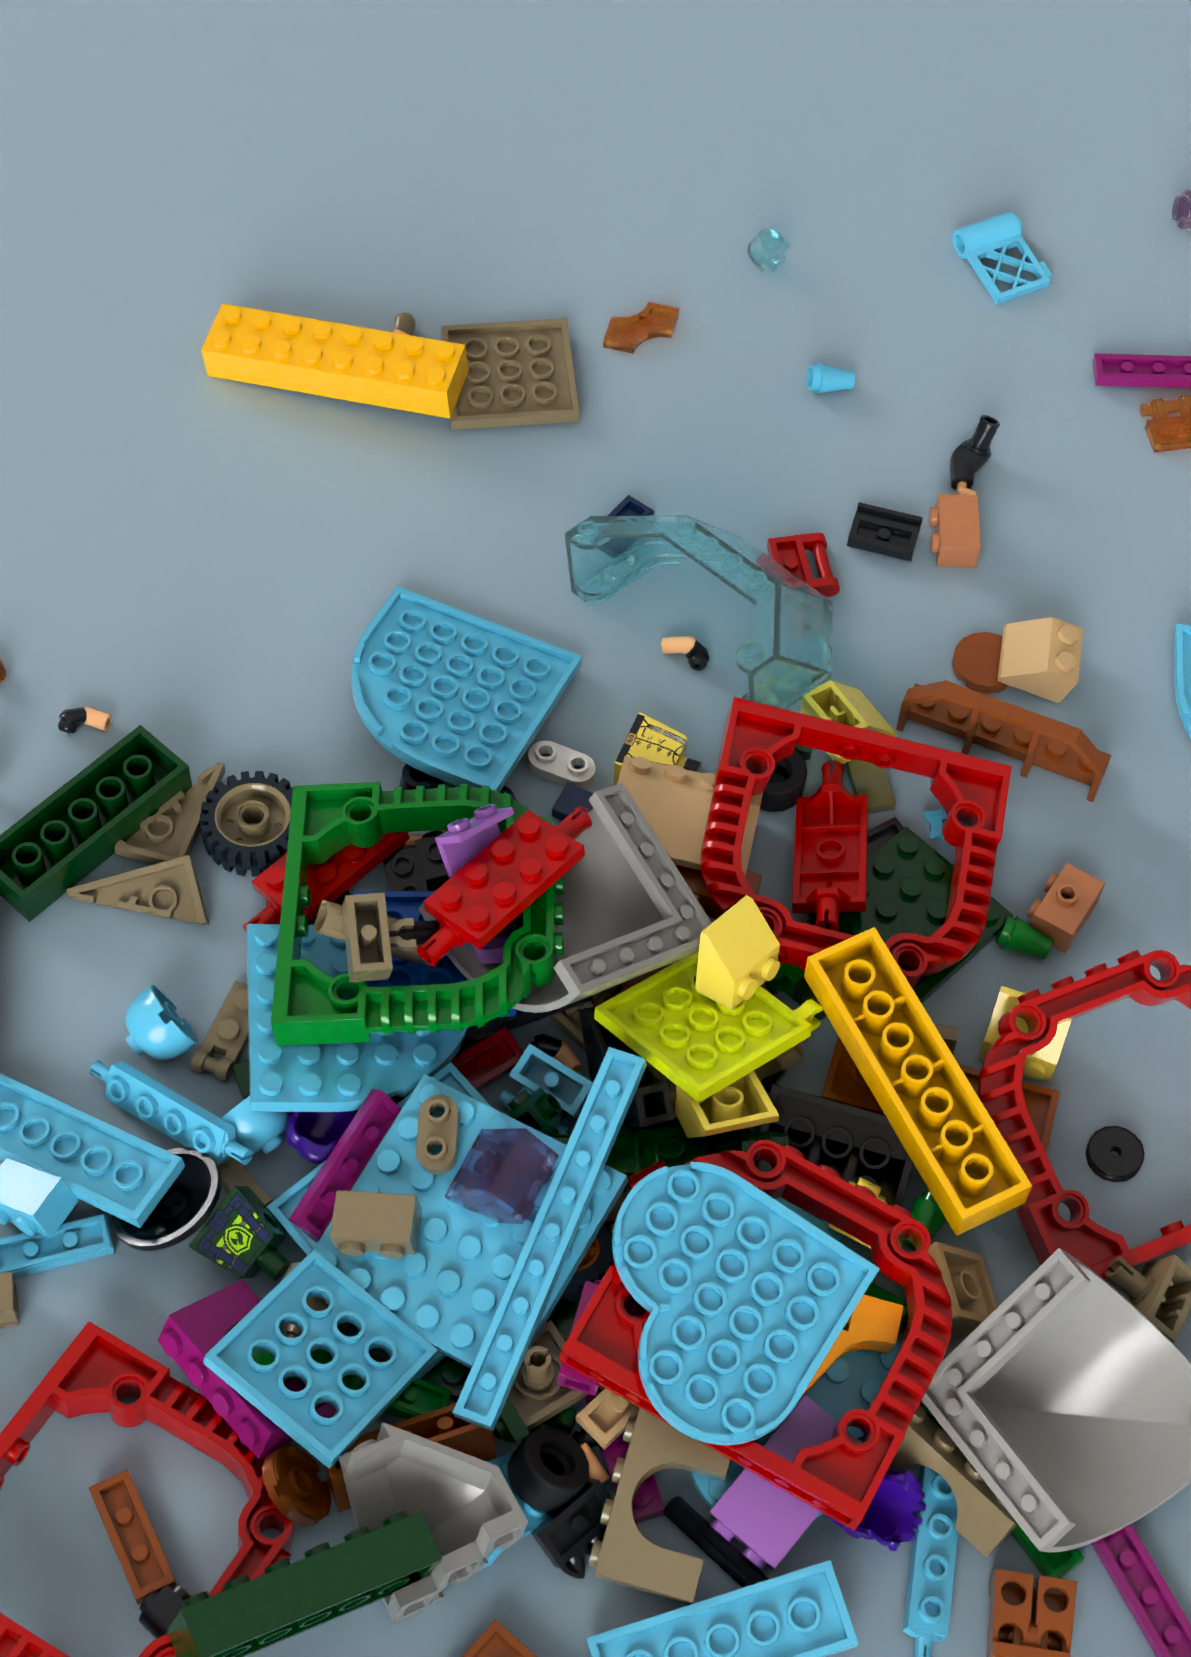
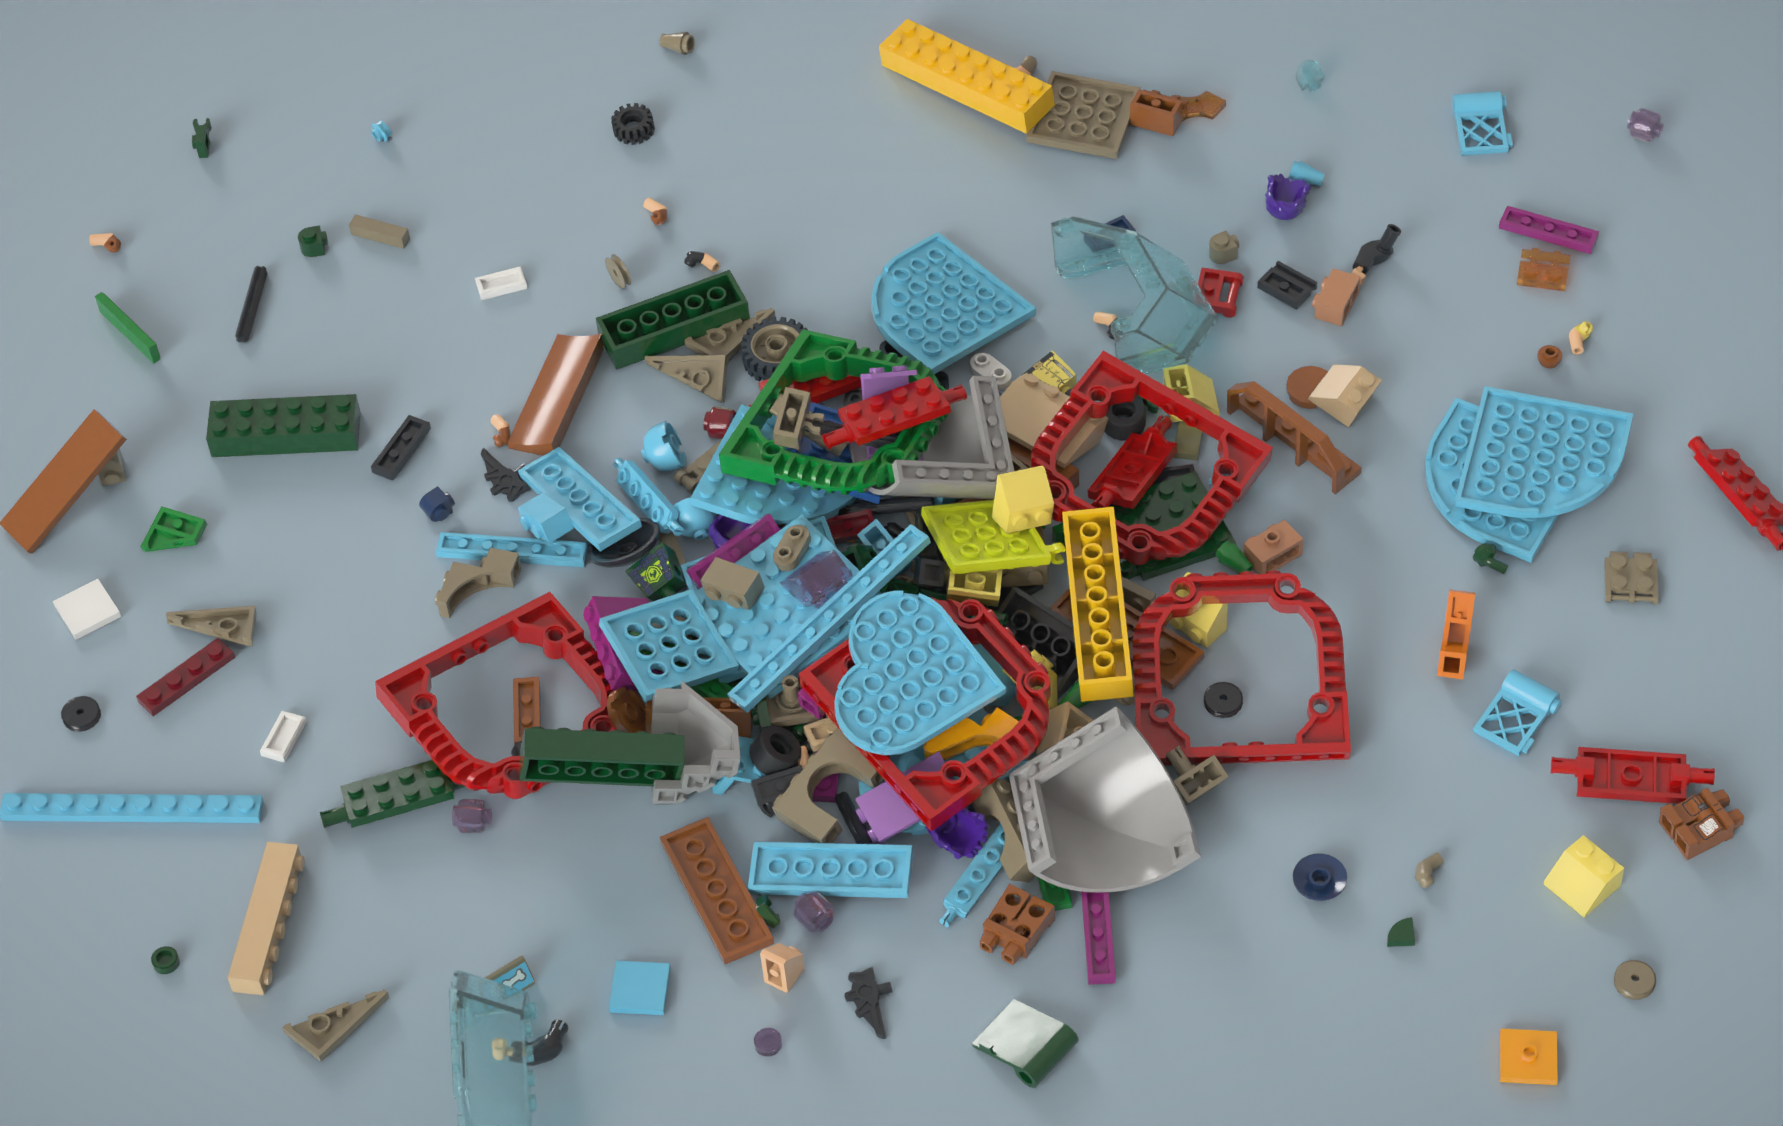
camera: 30 degrees right, 5 degrees down
(223, 958) = (718, 421): none -> dark red head
(605, 345) = (1157, 111): none -> dark orange brick
(779, 504) = (1223, 248): none -> dark tan plate
(826, 415) = (1286, 198): none -> dark purple hair

